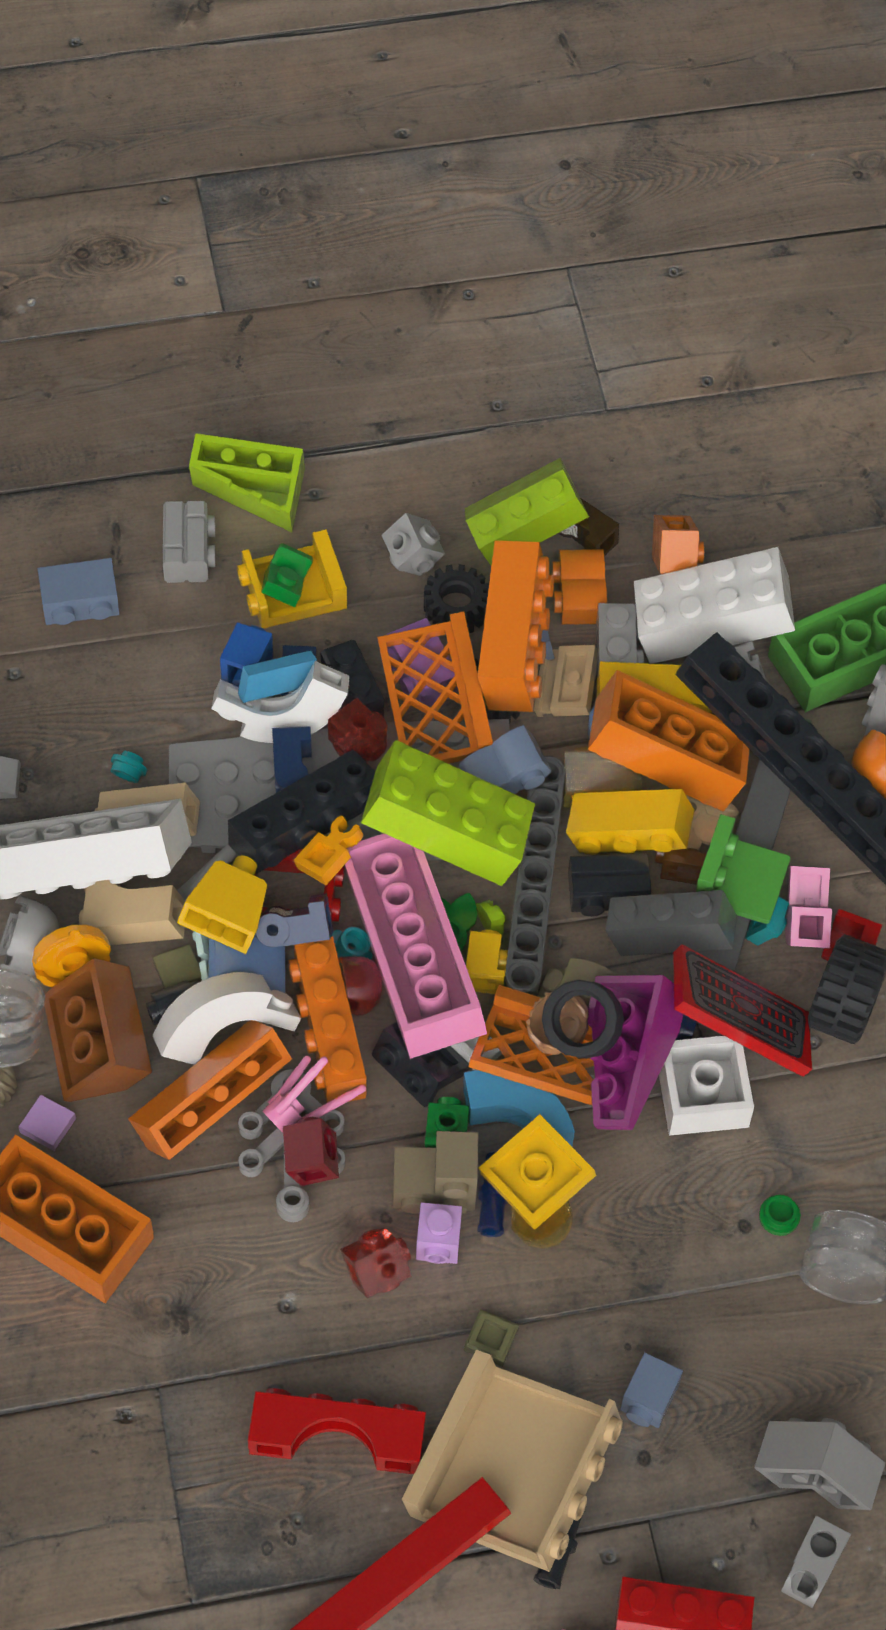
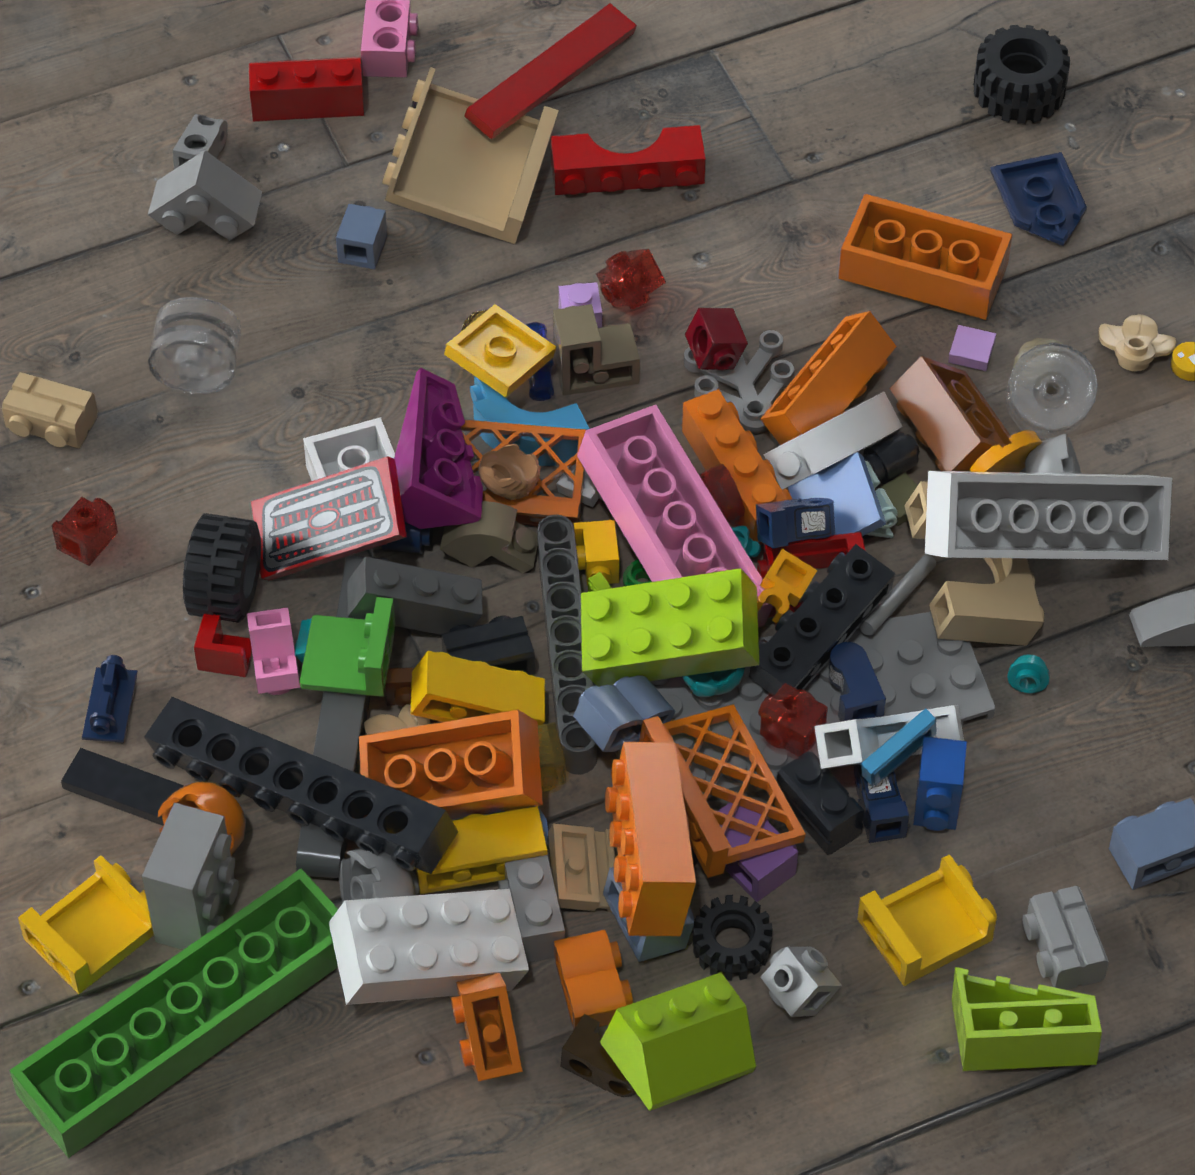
camera: 170 degrees right, 5 degrees down
(226, 903) = (869, 503): yellow torso -> none
(286, 574) = (935, 899): green bracket -> none
(286, 1109) = (748, 375): bright pink plant -> none
(447, 1112) = (596, 395): green brick -> none
(491, 1336) = (512, 260): olive tile -> none
(552, 1025) = (483, 445): black tyre -> none
(779, 1215) = (266, 396): green plate -> none

